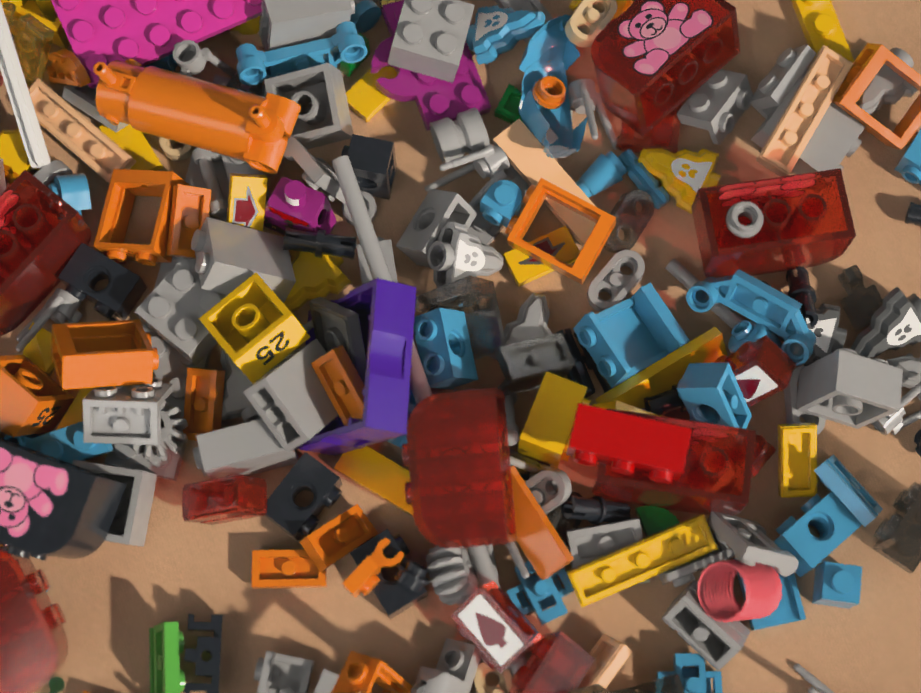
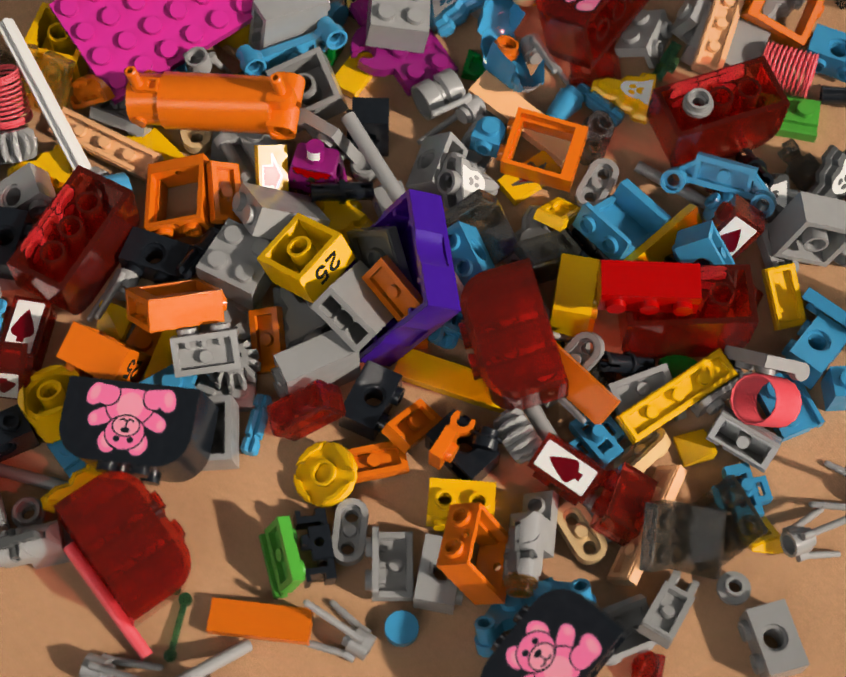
camera: 15 degrees left, 10 degrees down
(144, 287) = (187, 266): none -> black axle
(172, 499) = (256, 425): none -> dark azure axle
(233, 574) = (325, 474): none -> yellow tile
(245, 645) = (350, 533): none -> light grey plate
(372, 636) = (454, 491): none -> yellow brick
(560, 312) = (557, 213): none -> yellow tile
(587, 621) = (645, 451): none -> tan plate
(647, 619) = (694, 448): none -> yellow slope
(736, 140) = (668, 61): none -> clear green plate
(850, 163) = (812, 61): none -> coral piece
(875, 235) = (801, 119): none -> bright green plate

